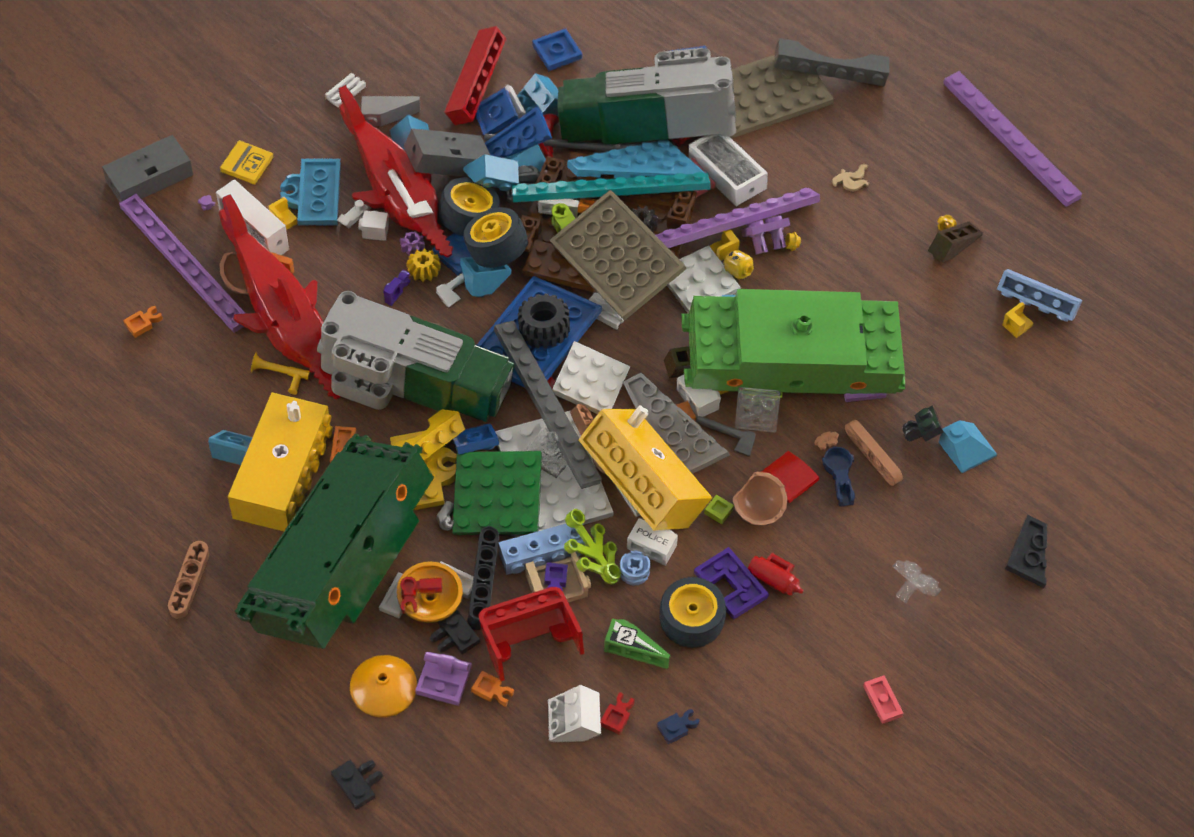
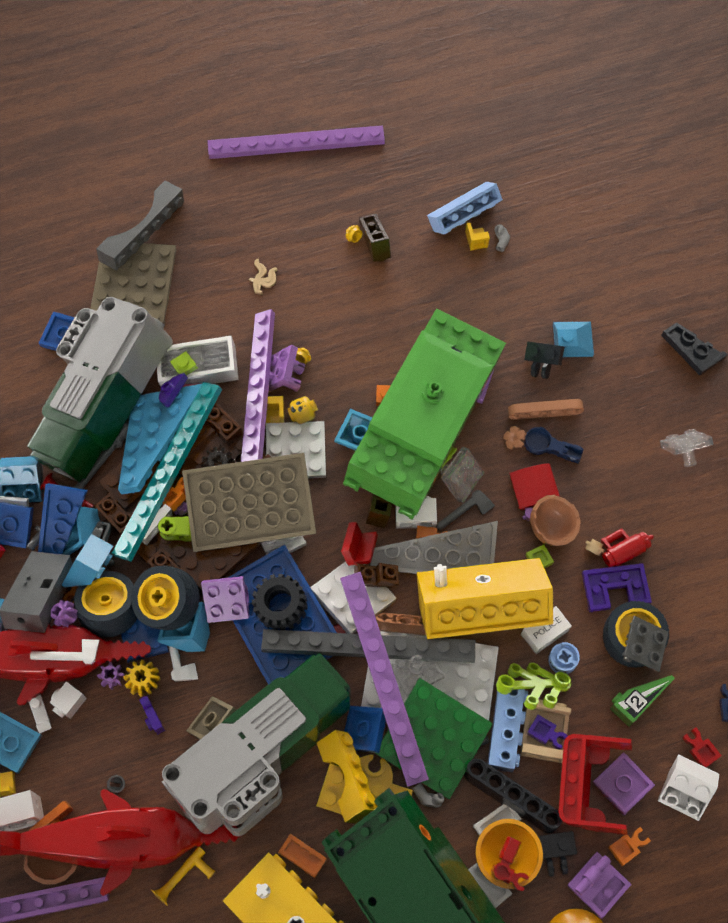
camera: 60 degrees left, 10 degrees up
(330, 287) = (115, 779): none -> dark grey hinge
(439, 176) = (64, 613): none -> medium lavender gear
(522, 422) = (384, 679): none -> medium lavender plate
(523, 282) = (225, 599): none -> medium lavender plate
(546, 662) = (623, 783): none -> medium lavender plate
(615, 384) = (378, 576): none -> reddish brown slope
(636, 358) = (358, 546): none -> red panel
(681, 610) = (645, 644): none -> dark grey hinge
(685, 153) = (171, 388): none -> dark purple plate
(715, 153) = (184, 364): none -> lime plate
(759, 548) = (595, 547): none -> tan plate
(1036, 342) = (503, 237): none -> light grey arm

